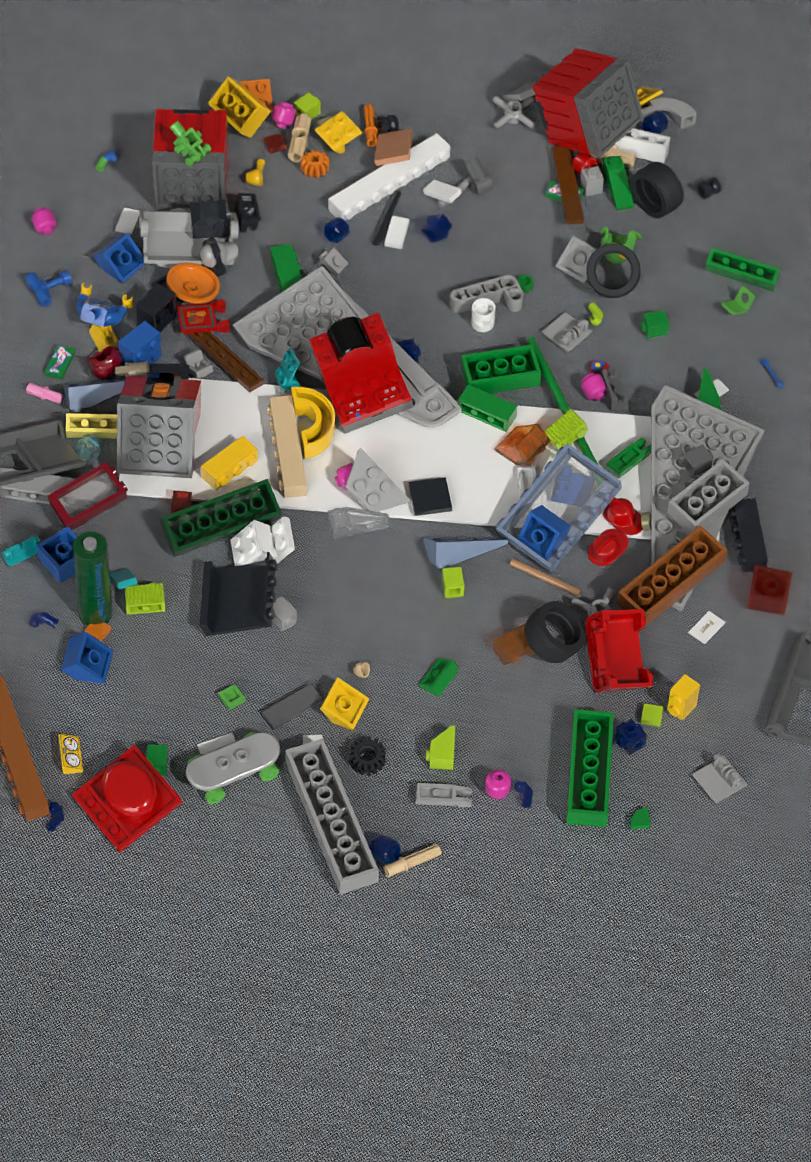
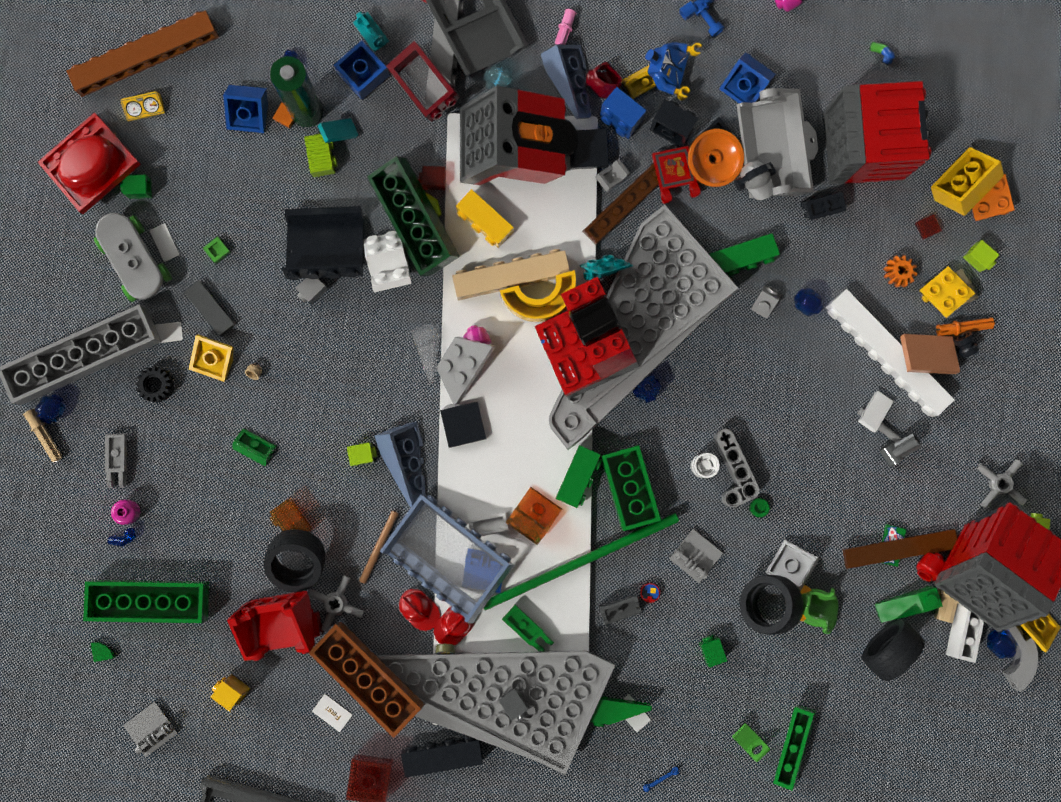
camera: 85 degrees right, 30 degrees up
(57, 816) = (77, 103): clear blue arm -> none
(60, 362) = (607, 38): tile -> none
(96, 424) = (520, 70): light yellow brick -> none
(127, 221) = (806, 84): white sticker -> none
(133, 369) = (592, 110): dark tan hinge -> none
(189, 143) = (867, 119): bright green piece -> none
(209, 219) = (797, 164): black slope -> none
(255, 176) = (876, 211): yellow bar -> none
(283, 114) = (966, 231): dark pink head -> none
(299, 137) = (947, 252): tan piece -> none
(386, 218) = (835, 354): black bar -> none
(397, 232) = (816, 367): white tile -> none
(437, 227) = (821, 409): clear blue brick -> none
(442, 750) = (163, 456): lime slope -> none
(520, 93) = (1030, 495): light grey tile -> none
(543, 532) = (417, 544): blue slope -> none
(566, 430) = (550, 561): lime brick -> none
(591, 181) = (907, 575): light grey brick -> none
(594, 386) = (621, 587): dark pink head -> none
(597, 314) = (722, 588): lime arm -> none
(630, 736) = (187, 639): clear blue brick -> none
(652, 715) = (221, 659): lime tile -> none
(708, 188) = (913, 707): black wheel -> none
(708, 497) = (464, 716): light grey brick -> none

